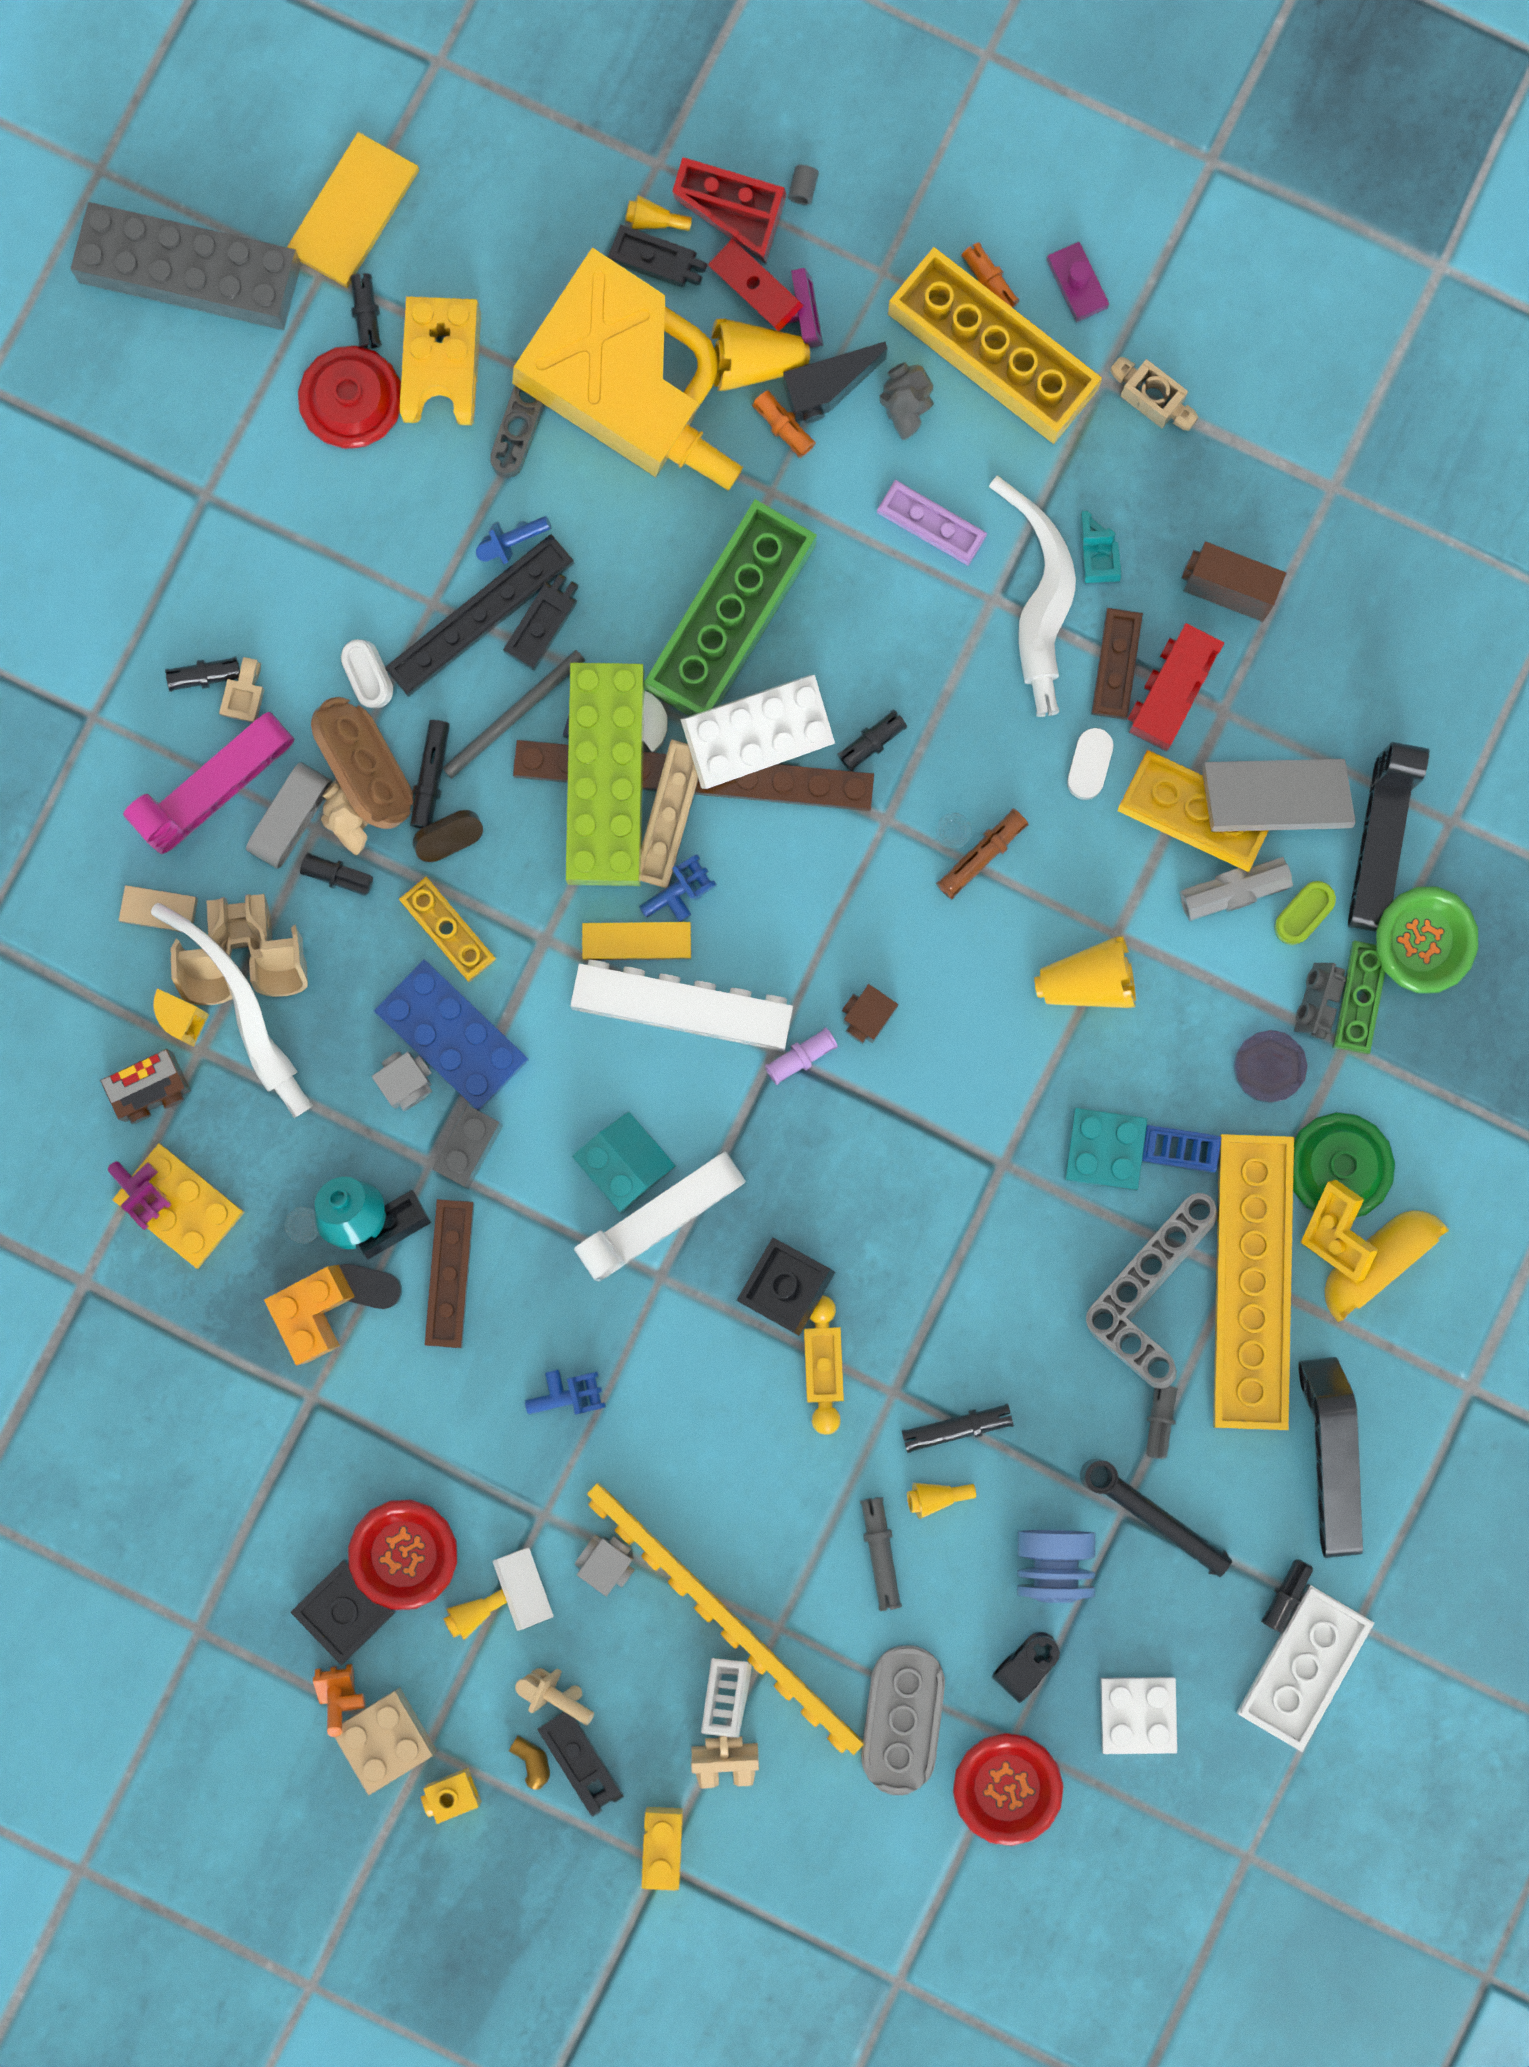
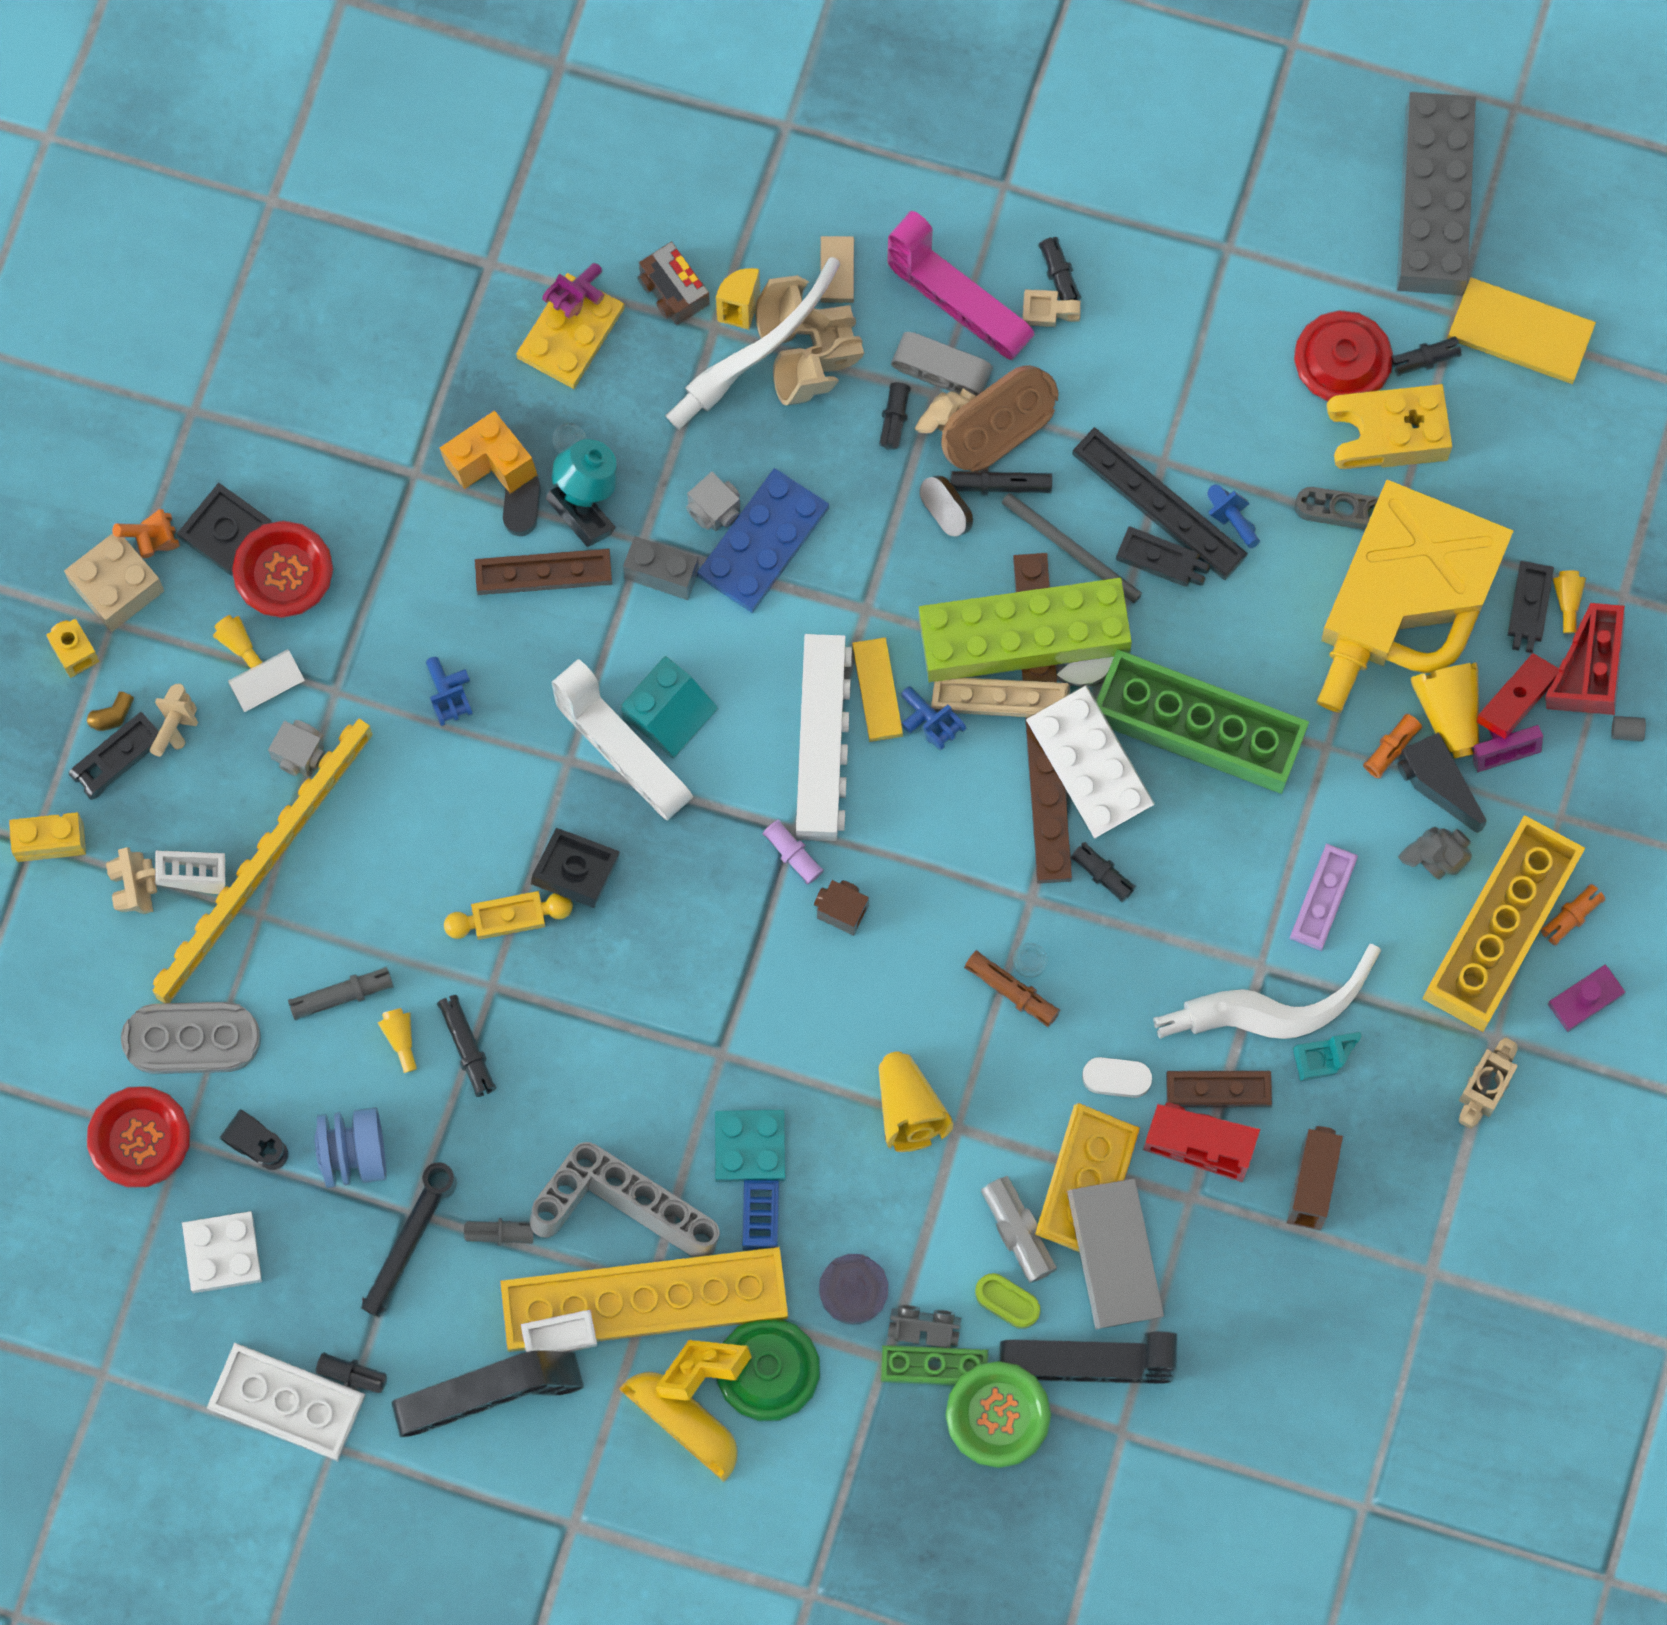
camera: 80 degrees right, 10 degrees down
(367, 673) = (1085, 412): white tile -> none
(462, 944) = (848, 535): yellow tile -> none
(1282, 1374) = (560, 1333): none -> white tile

